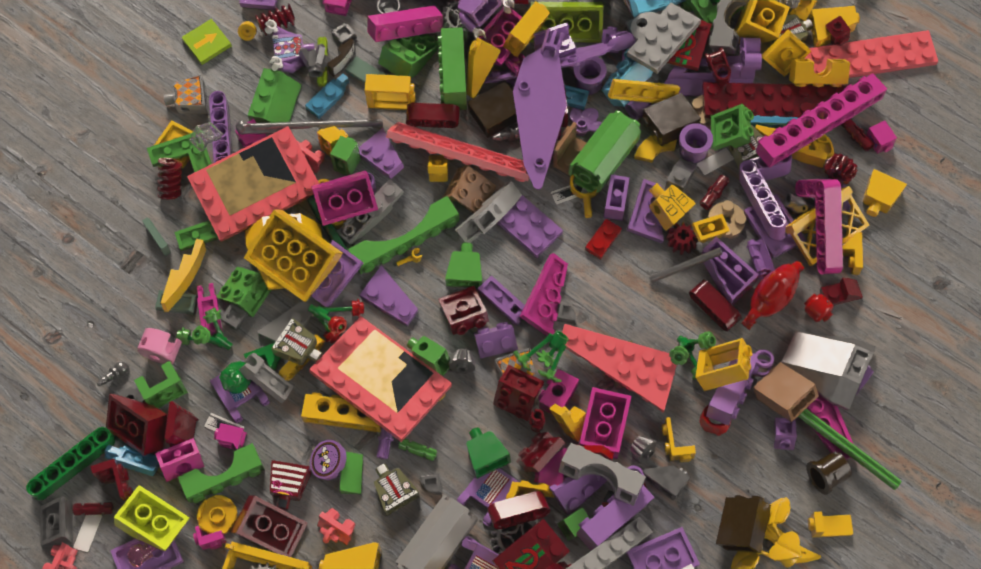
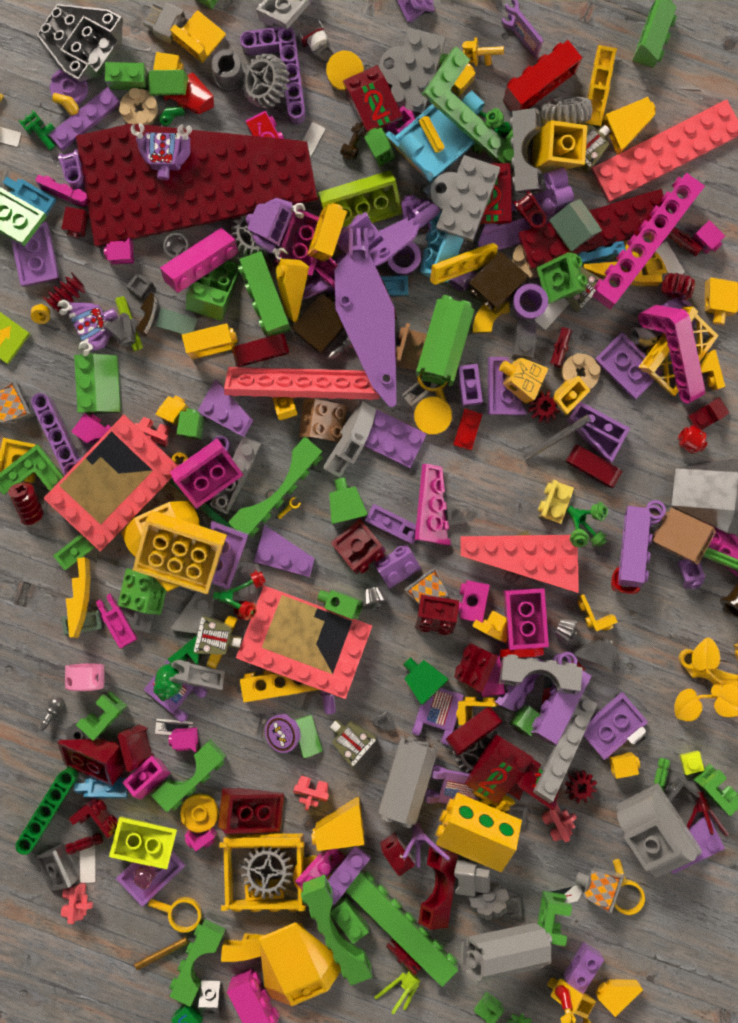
camera: 15 degrees left, 20 degrees up
(156, 236) = (37, 564): sand green tile -> none
(202, 335) = (123, 659): bright green plant -> none
(205, 134) = (44, 449): clear bracket -> none
(262, 128) = (113, 415): flat silver bar -> none
(288, 482) = (252, 764): dark red torso -> none
(327, 96) = (148, 360): dark azure hinge -> none
(418, 449) = (363, 694): bright green axle -> none
(537, 420) = (465, 641): dark red pin -> none
(557, 343) = (454, 570): plant -> none
(574, 215) = (433, 415): none -> yellow tile
(585, 120) = (413, 305): medium lavender plate -> none
(668, 327) = (555, 502): none -> light yellow bracket
(719, 354) = (605, 539): yellow window -> none
(743, 524) = (678, 675): dark brown brick -> none
(753, 178) = (621, 350): medium lavender beam -> none
(757, 88) = (575, 225): none -> sand green slope
(760, 257) = (625, 404): medium lavender hinge -> none
(774, 292) = (649, 440): red piece -> none
(784, 49) = (594, 175): yellow plate -> none
(835, 72) = (646, 183): yellow arch -> none
(839, 31) = (638, 131): dark red bracket -> none
(839, 144) = (670, 260): none -> white sticker

